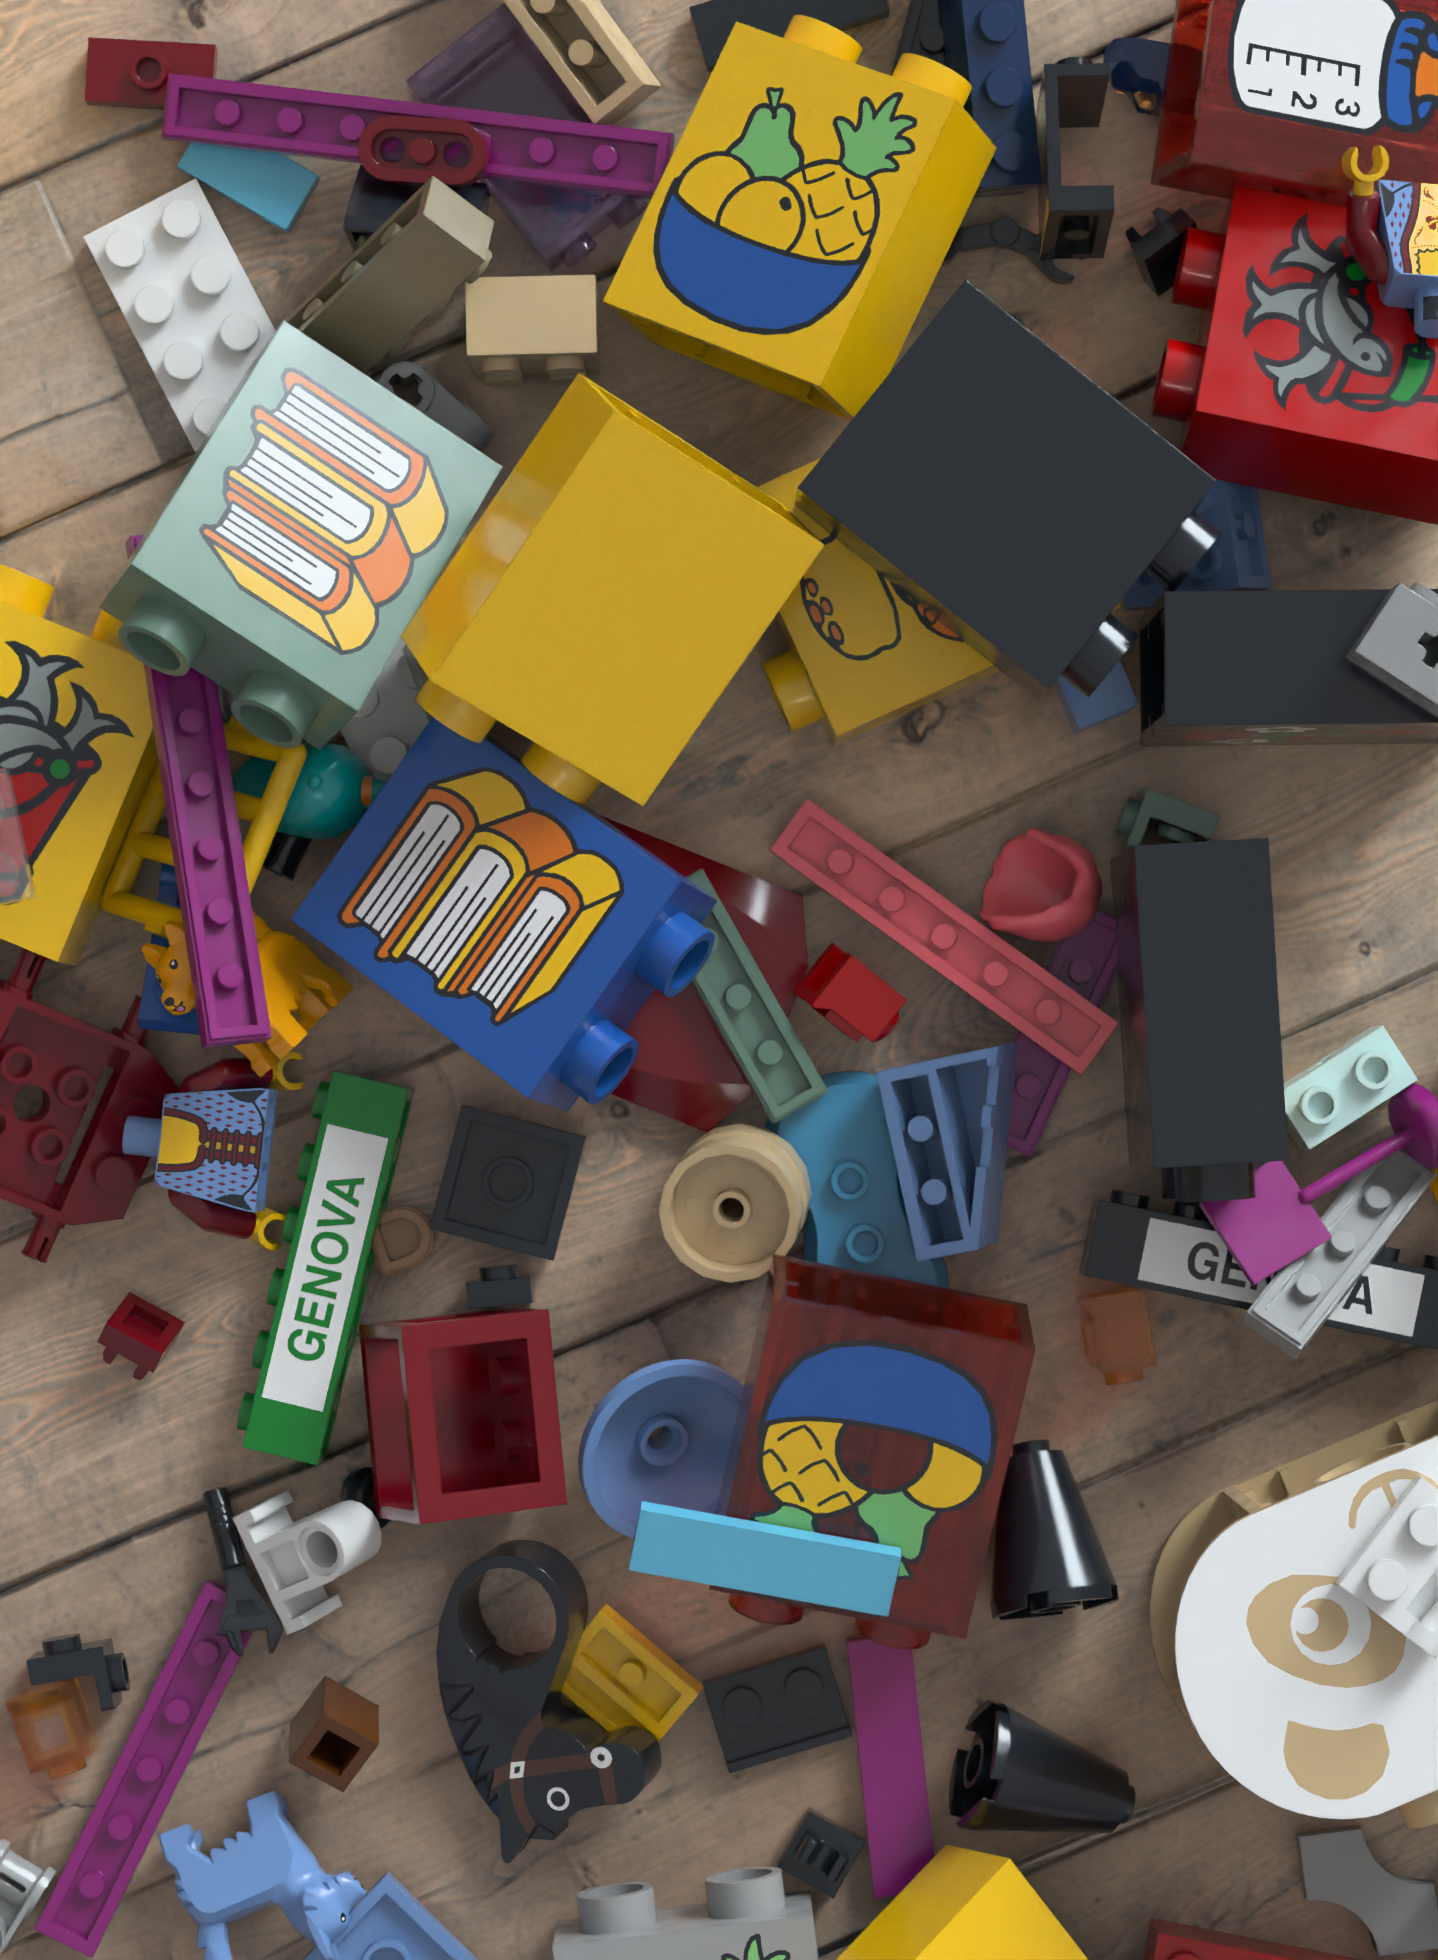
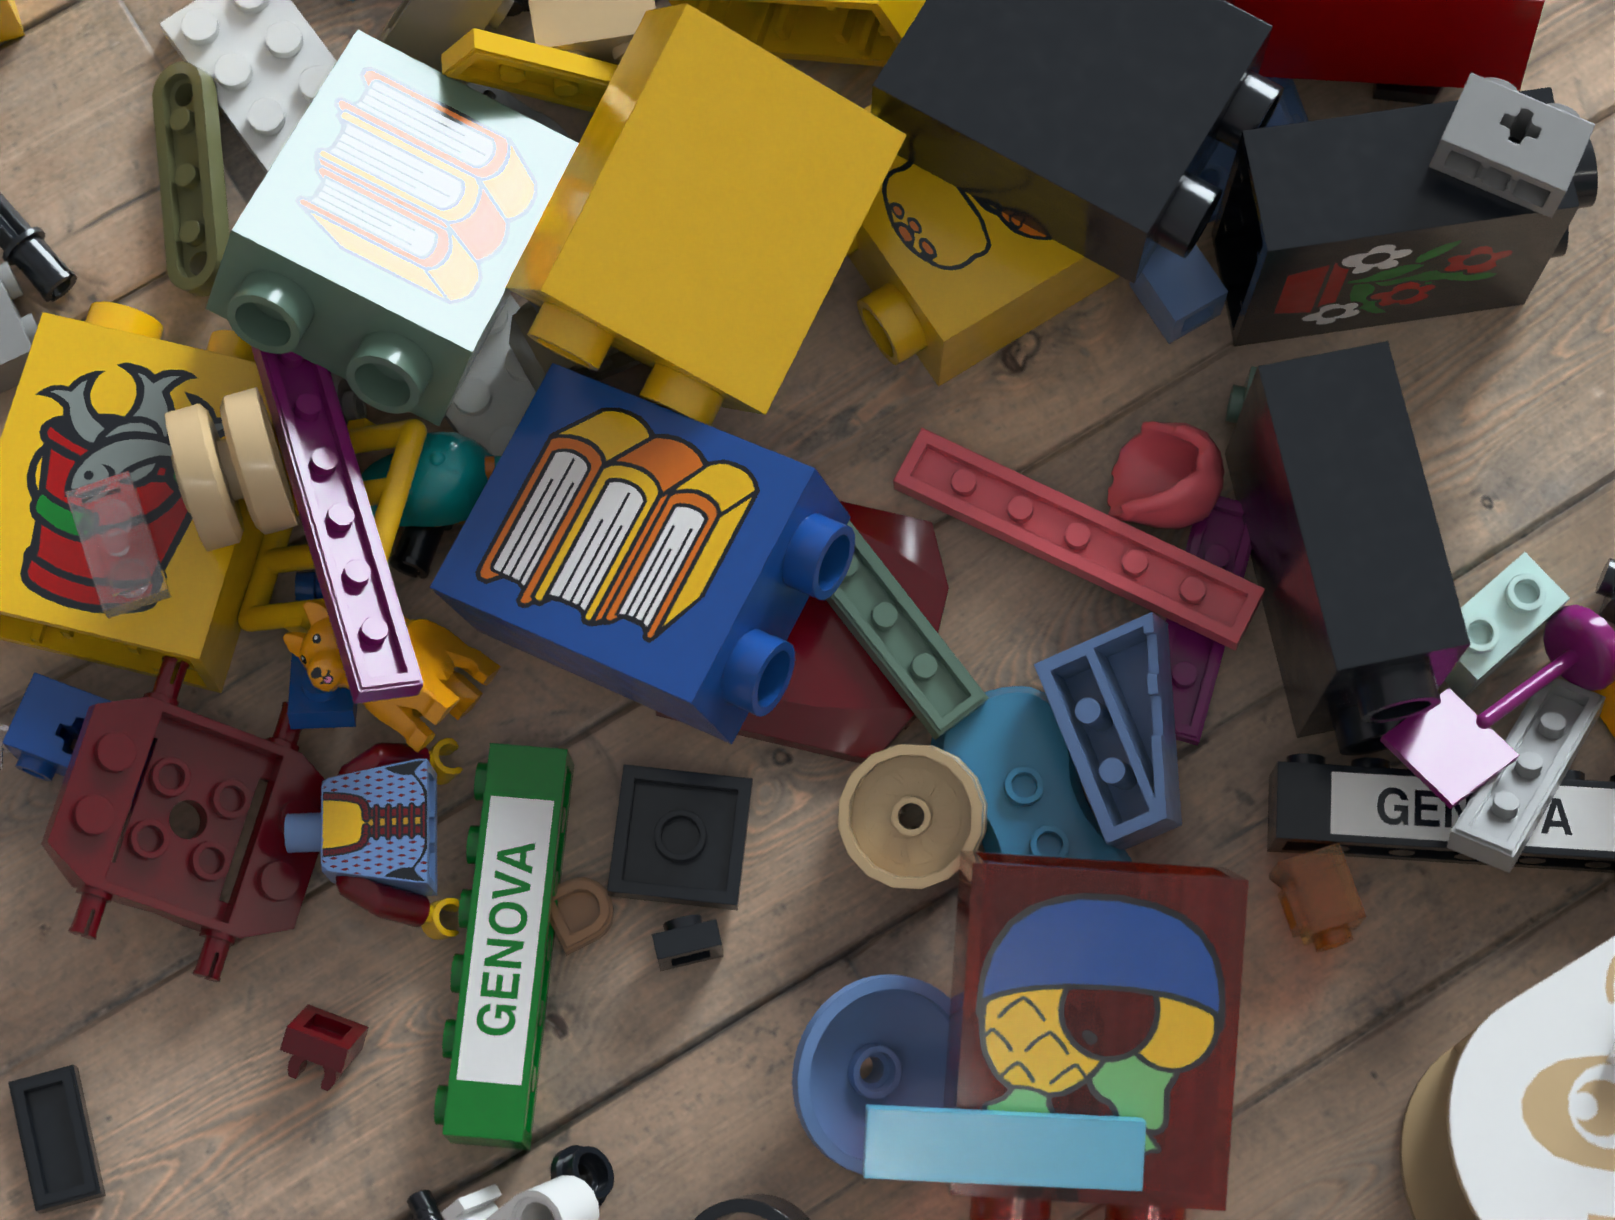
camera: 10 degrees left, 15 degrees down
(99, 419) = (190, 176): none -> olive plate
(107, 790) = (221, 472): none -> tan wheel
(462, 1415) = (666, 1060): dark red piece -> none
(468, 379) = (528, 69): none -> yellow tile
(850, 996) = (996, 604): red window -> none
(1045, 1541) = (1288, 1120): black cone -> none

